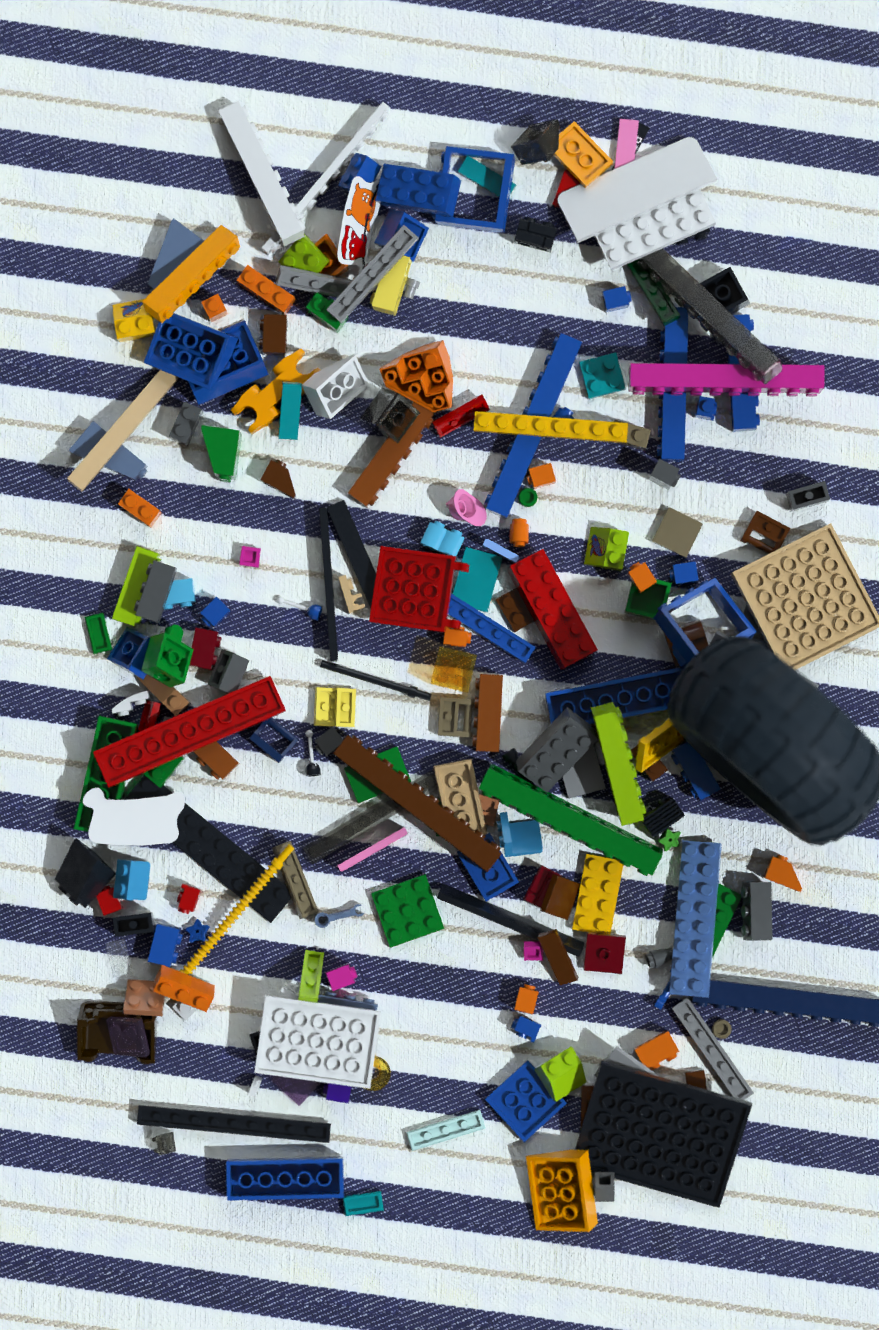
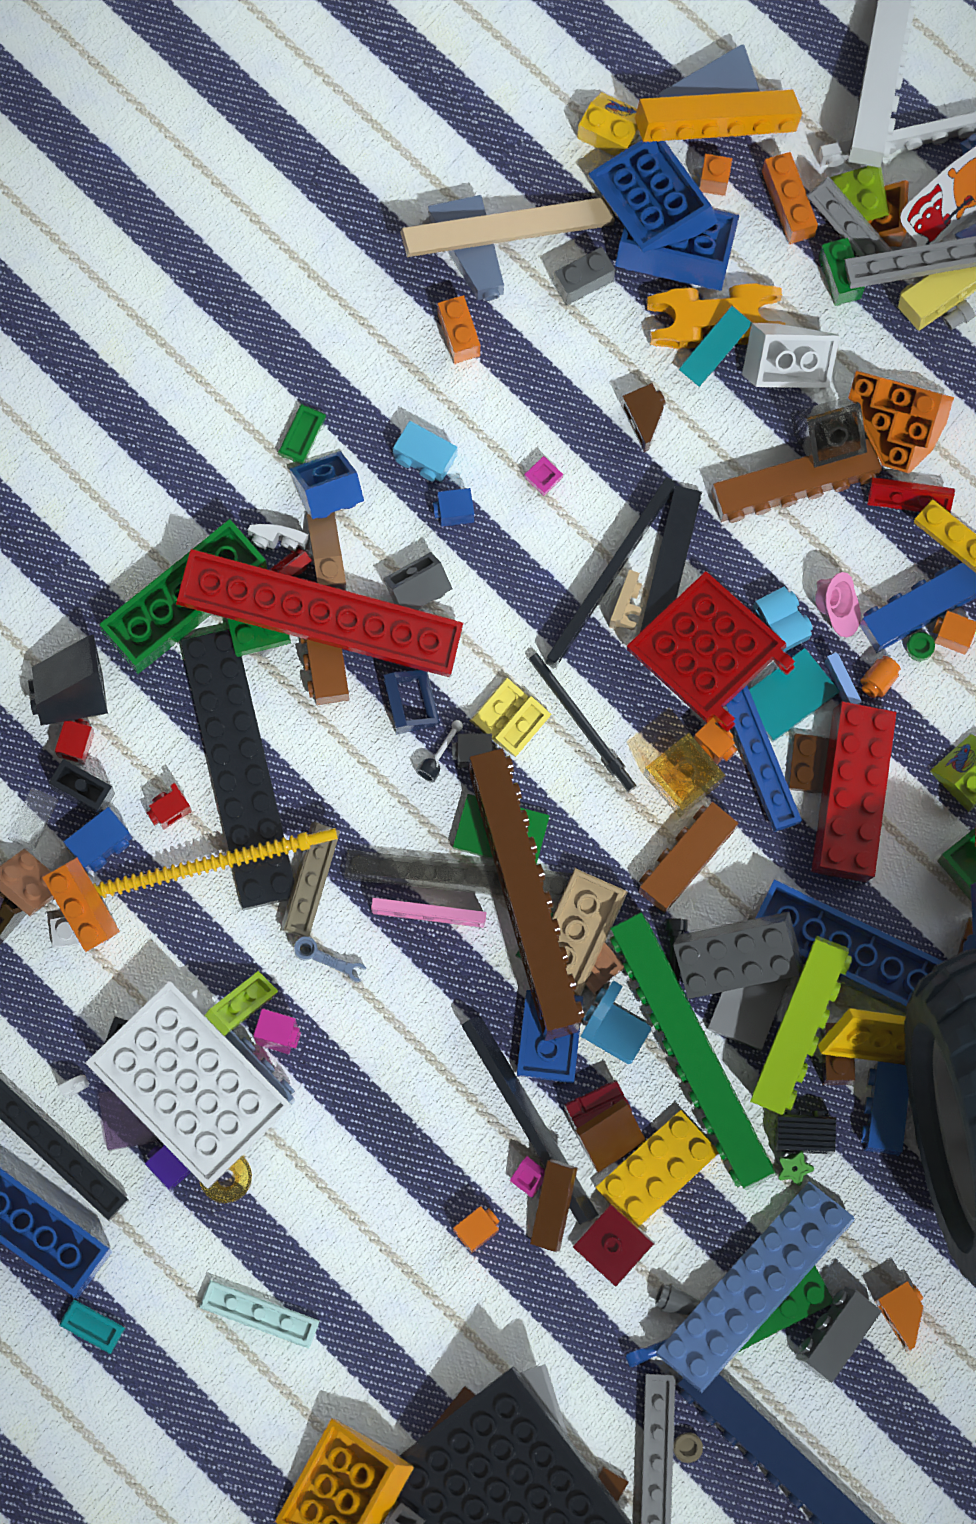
camera: 30 degrees right, 10 degrees down
(131, 588) = (386, 413): lime brick -> none
(131, 880) = (120, 735): dark azure bracket -> none
(134, 820) = (176, 667): white sticker -> none
(155, 591) = (405, 428): dark grey brick -> none
(168, 657) = (361, 511): green brick -> none
(200, 936) = (152, 860): blue plate -> none
(204, 648) = (410, 538): dark red brick -> none
(223, 450) = (605, 333): green slope -> none
(274, 335) = (762, 252): reddish brown brick -> none
(313, 611) = (570, 590): hinge -> none
(407, 911) = (414, 1017): green plate -> none
(449, 717) = (637, 827): dark tan plate -> none
(524, 1101) = (383, 1352): blue plate -> none
(526, 1027) = (450, 1263): blue brick -> none
(562, 1074) = (452, 1351): lime slope -> none
(657, 1050) = (590, 1412): orange brick -> none

